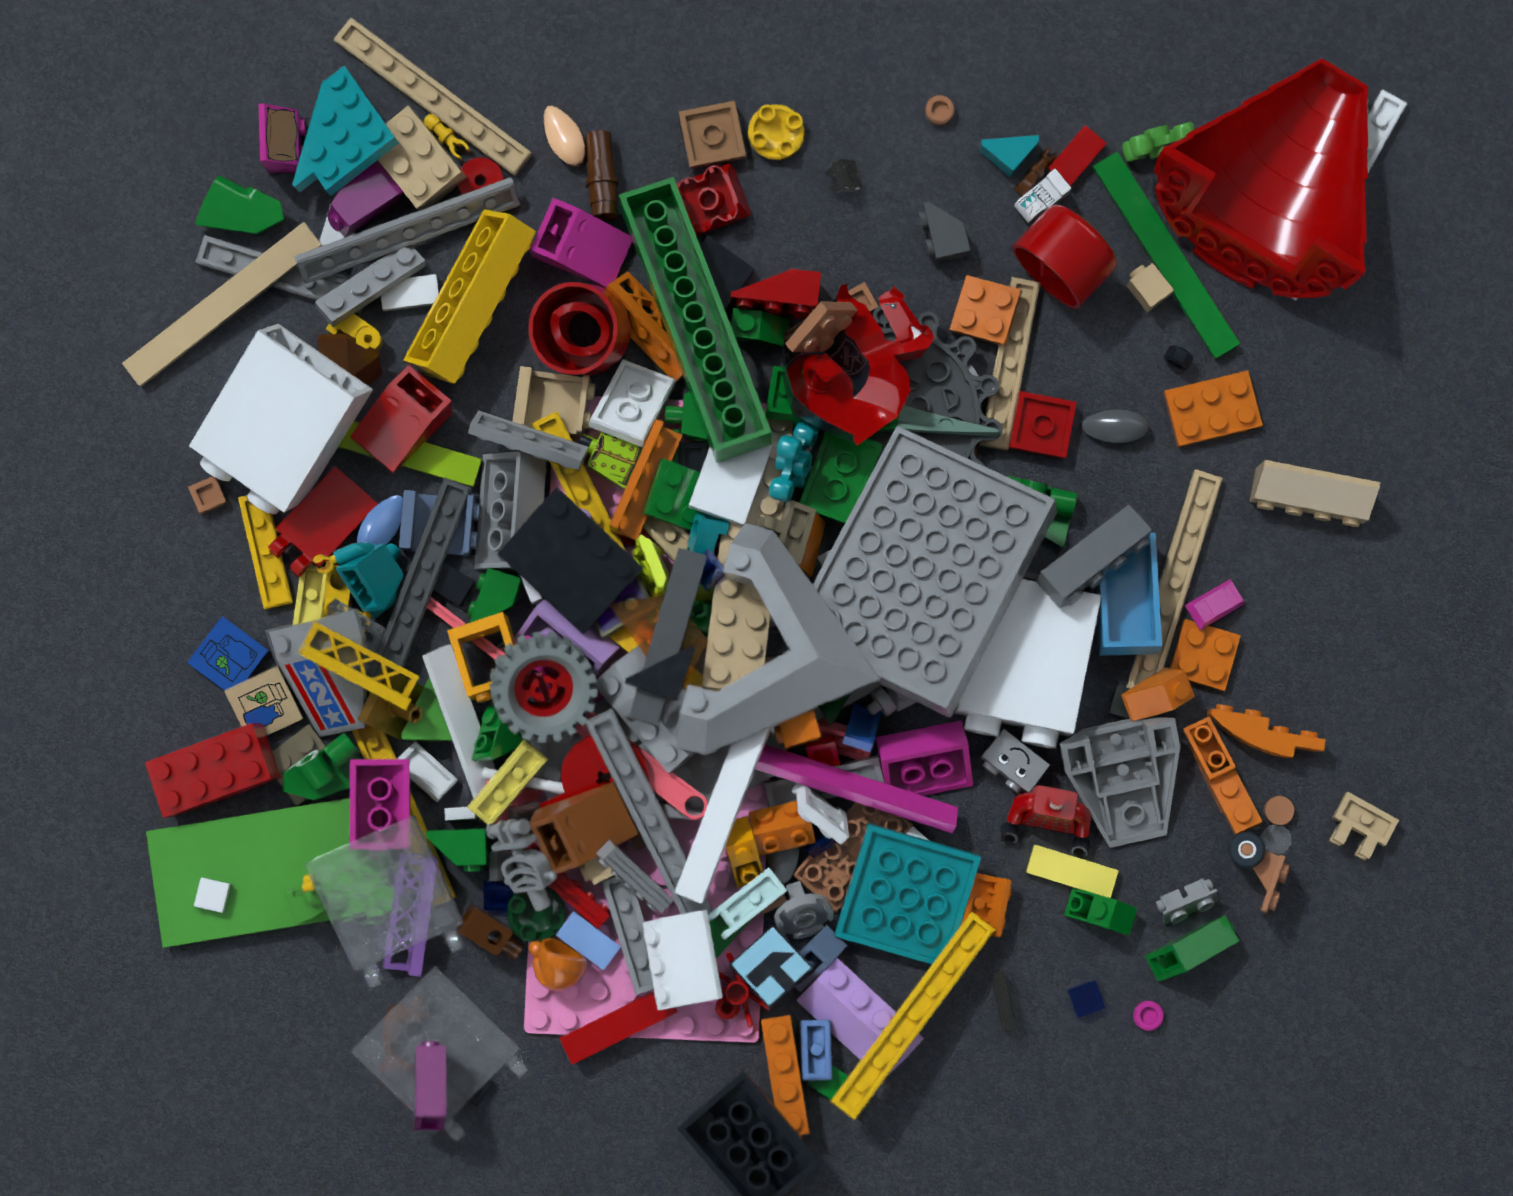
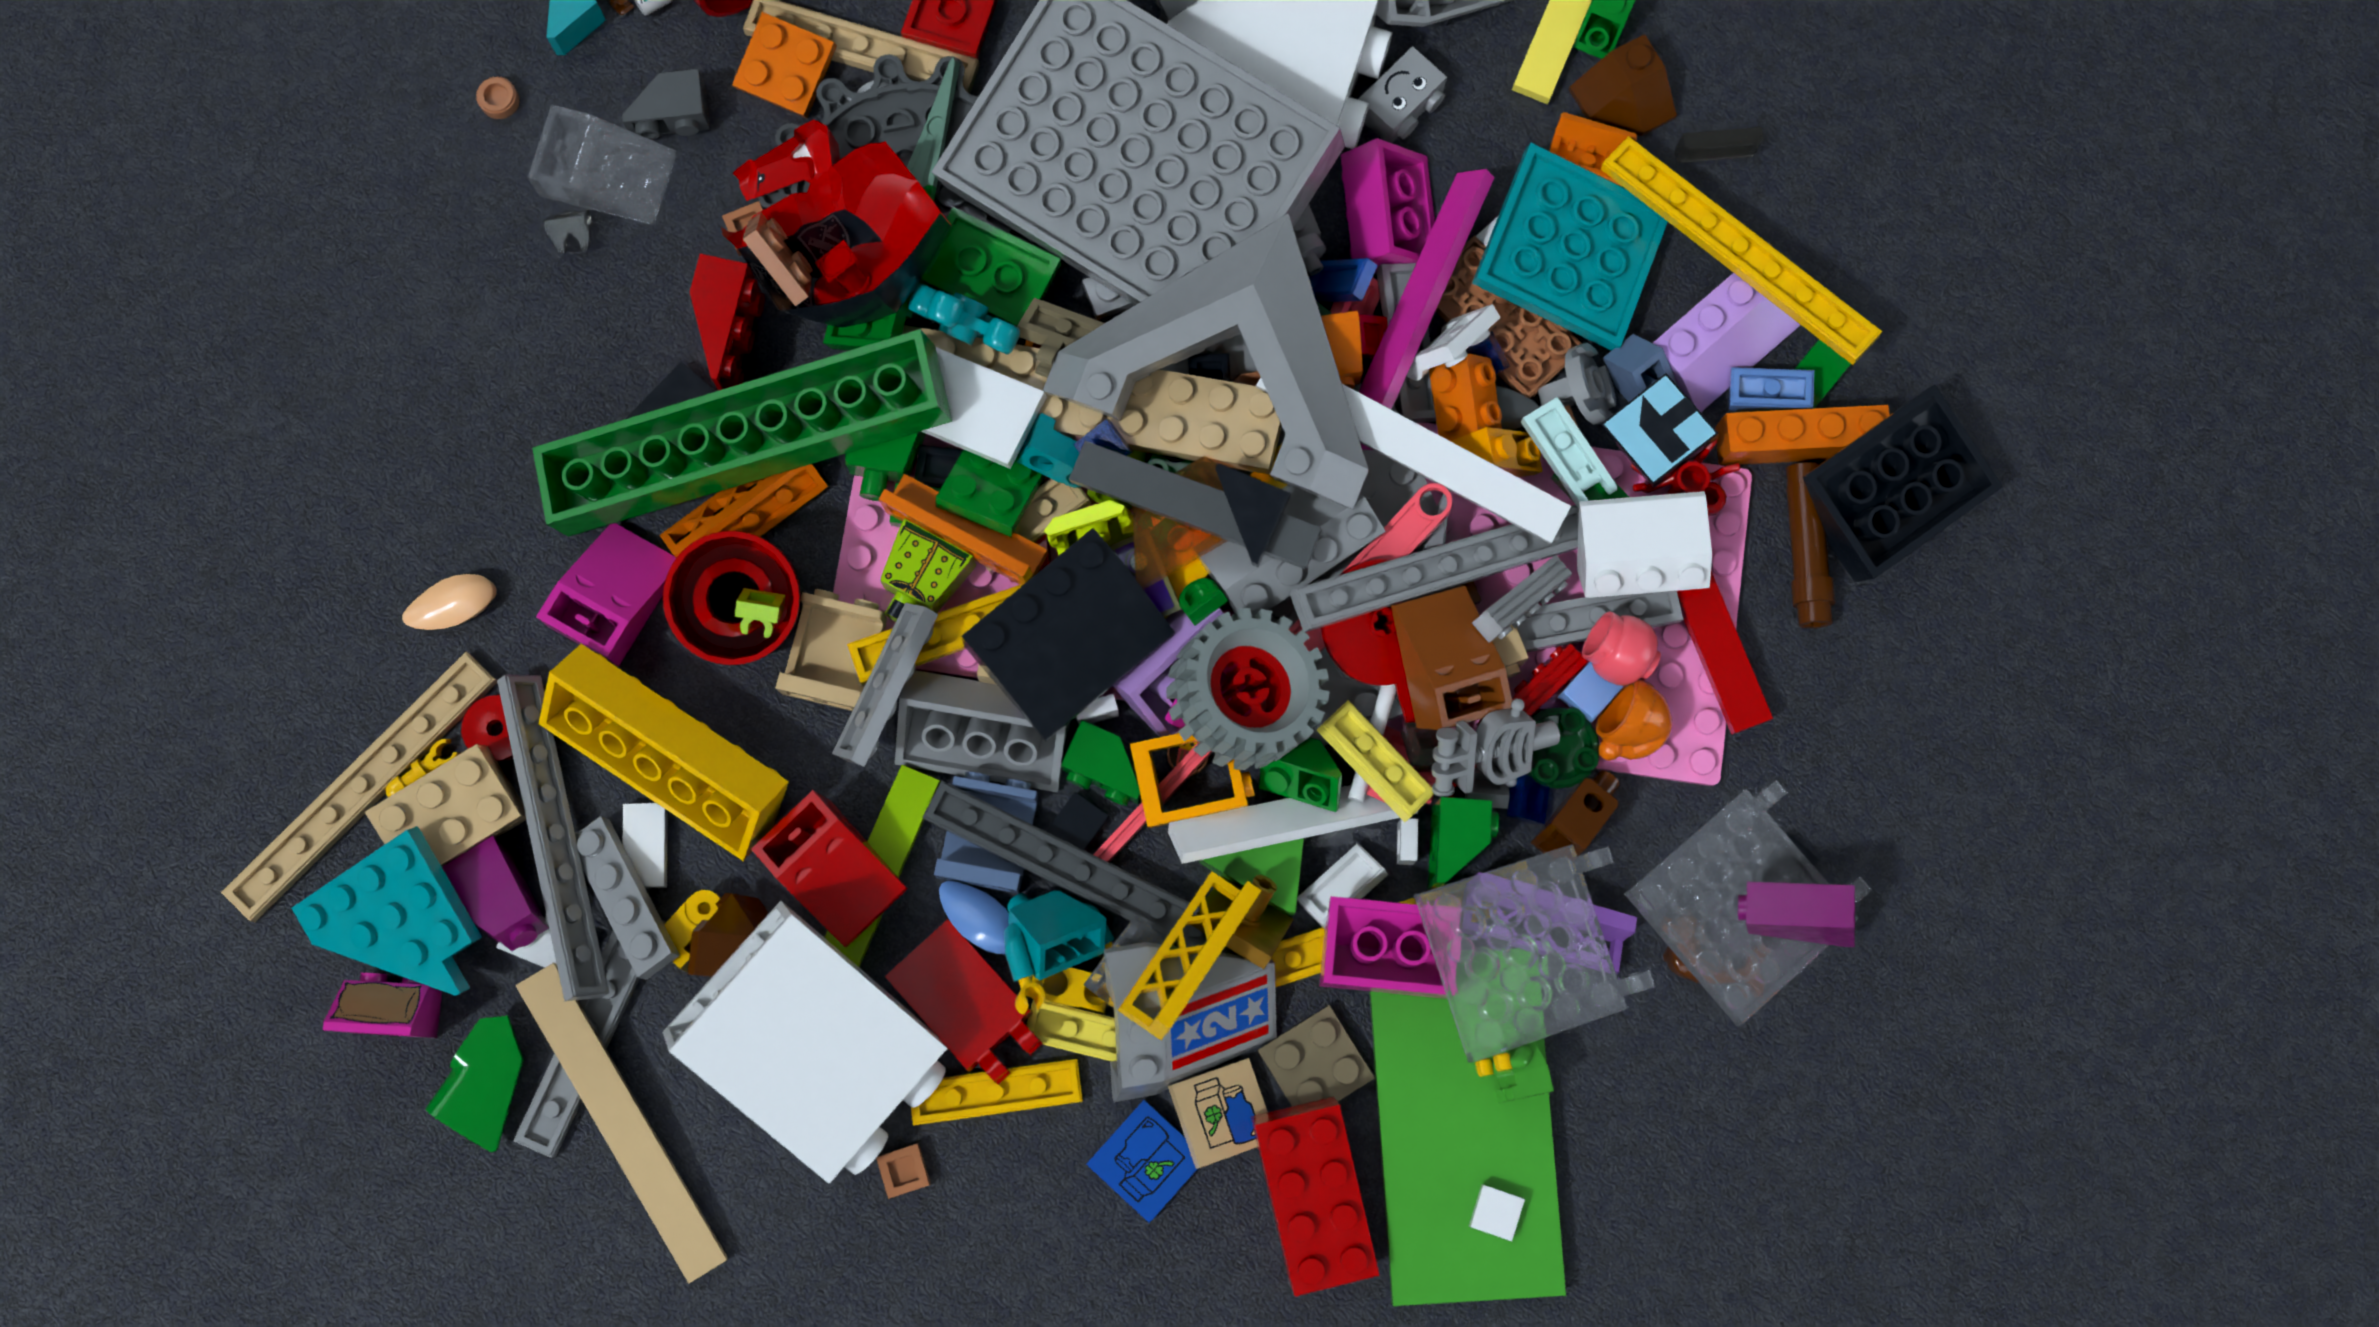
camera: 85 degrees left, 5 degrees down
(322, 771) = (1330, 1031): green panel -> none
(571, 348) = (759, 606): none -> lime tile
(601, 175) = (514, 554): reddish brown piece -> none
(604, 949) = (1622, 649): none -> coral piece
(608, 649) = (1201, 599): none -> green tile
(632, 403) = (850, 540): white tile -> none
(673, 1088) = (1812, 584): none -> reddish brown piece
(712, 134) = (481, 398): medium nougat plate -> none
(713, 198) = (572, 401): red slope -> none
(759, 328) = (767, 353): green slope -> none
(776, 131) = (491, 313): yellow dish -> none
(891, 193) = (600, 166): none -> clear slope
(1038, 929) = (1627, 89): none -> reddish brown slope
(1052, 811) = (1473, 54): red torso -> none
(1086, 998) = (1720, 45): clear blue tile -> none

